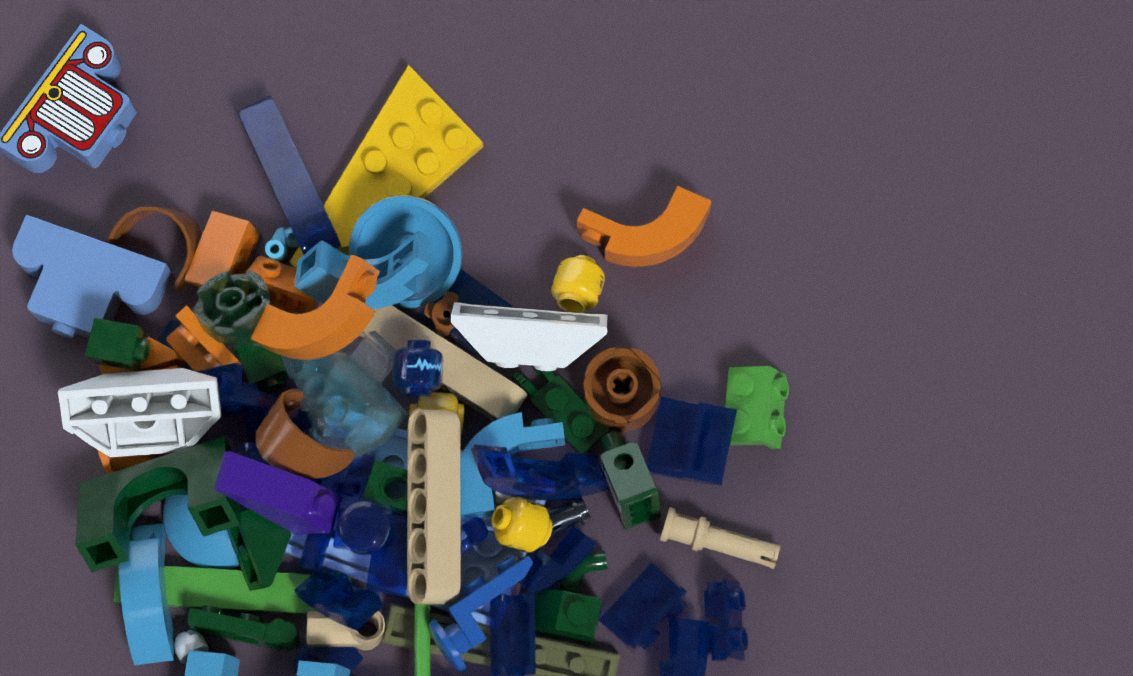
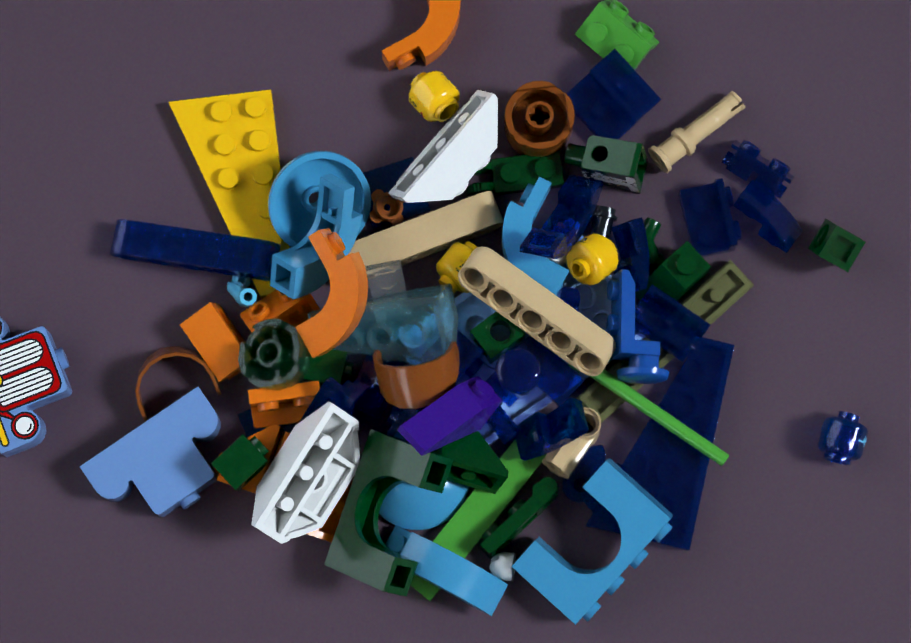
camera: 60 degrees left, 5 degrees up
(417, 369) = (422, 253): clear blue head -> none

